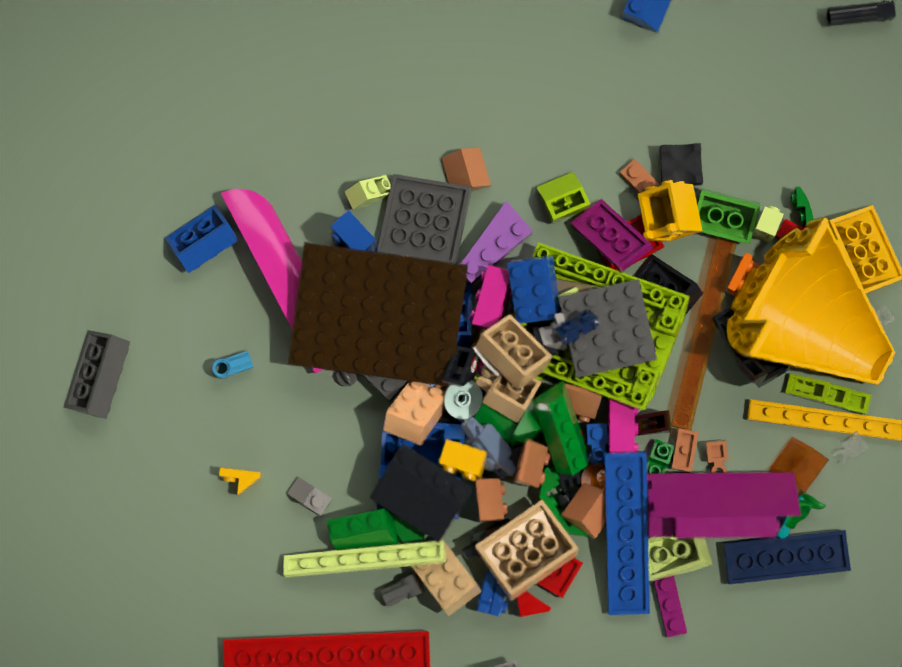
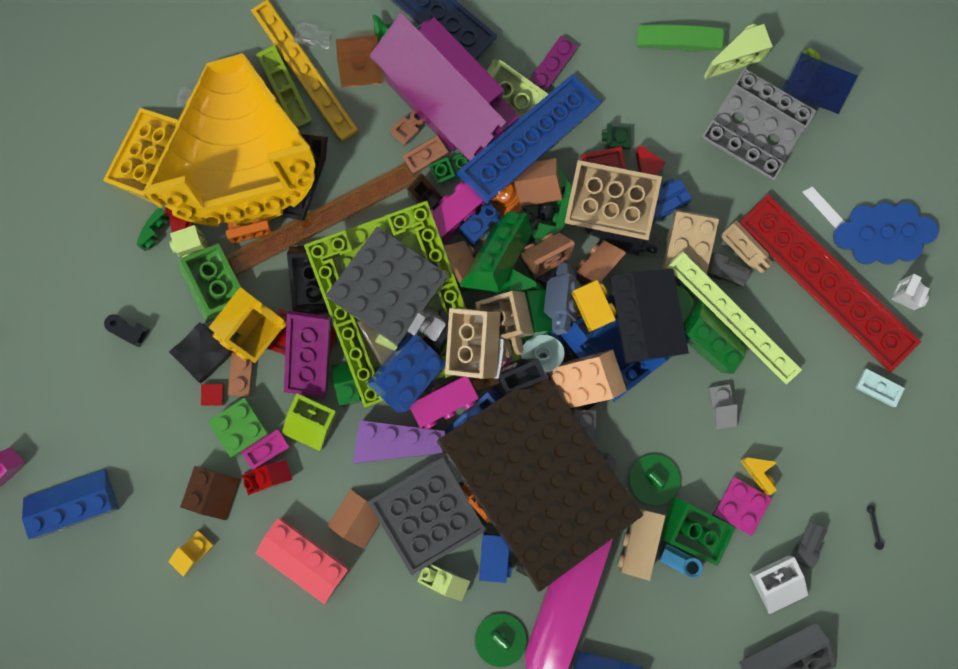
camera: 130 degrees left, 0 degrees up
(114, 515) = (878, 544): none -> black hinge
(154, 418) = (780, 583): none -> white slope
(159, 462) = (807, 550): none -> dark grey piece
(219, 620) = (879, 388): none -> light aqua plate
(229, 444) = (742, 506): none -> dark pink plate
(242, 394) = (696, 531): none -> green slope
(270, 347) = (641, 545): none -> tan slope
(294, 195) = (500, 640): none -> green shield
(303, 400) = (654, 479): none -> green shield
(406, 620) = (746, 247): none -> tan hinge
(471, 110) = (302, 560): none -> coral slope
(545, 40) = (190, 553): none -> yellow slope
(551, 135) = (267, 477): none -> red slope
(568, 243) = (345, 385): none -> green slope
(571, 151) = (266, 449): none -> dark pink plate
(573, 603) = (616, 137): none -> dark green bracket
(575, 87) = (210, 493): none -> reddish brown slope
(585, 321) = (400, 305): dark blue hinge -> none
(602, 146) = (239, 427): none -> bright green brick
(644, 148) = (212, 394): none -> red tile
(749, 125) = (119, 327): none -> black leg

